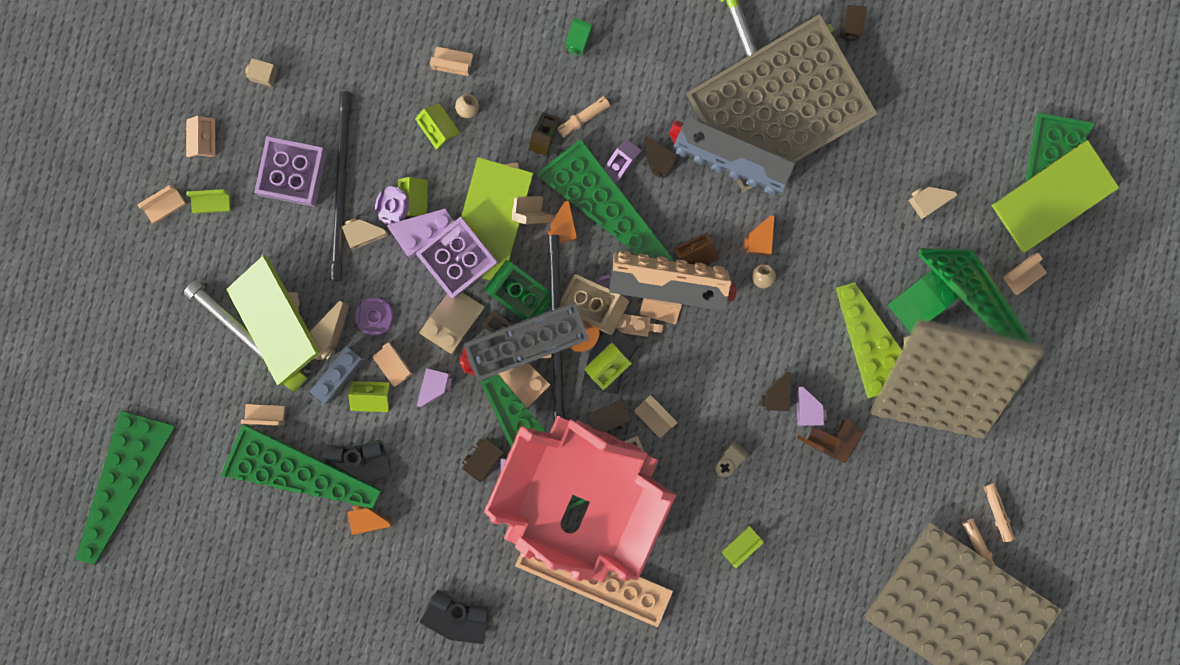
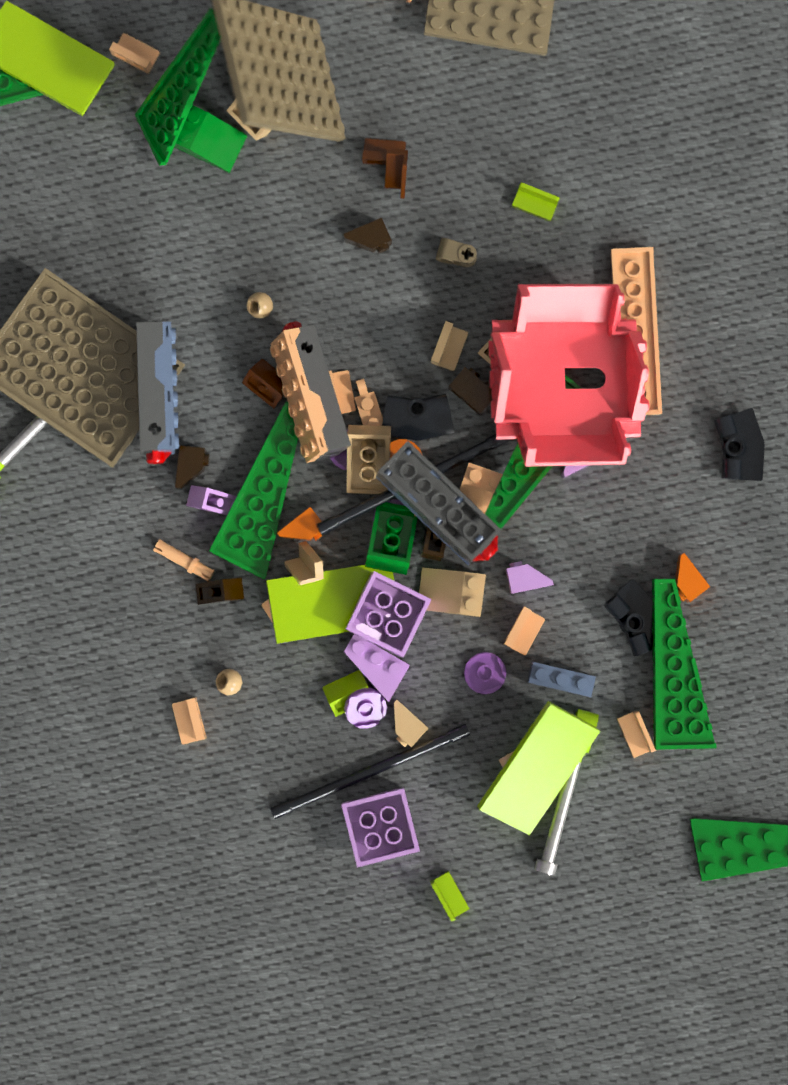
camera: 120 degrees left, 0 degrees up
(162, 204) = (475, 942): light nougat panel -> none
(200, 136) = (388, 939): light nougat panel -> none
(261, 72) = (293, 909): tan brick -> none
(328, 330) = (523, 708): tan slope -> none
(369, 396) = (566, 638): lime panel -> none
(437, 125) = (262, 703): lime panel -> none
(482, 459) = (574, 495): dark brown brick -> none
(578, 37) = (106, 602): green slope -> none
(607, 366) = (423, 415): lime panel -> none
(761, 238) = (222, 326): orange slope -> none
(809, 409) = (370, 200): lavender slope -> none
(871, 341) = (274, 169): lime wing -> none
(929, 200) = (106, 178): tan slope -> none

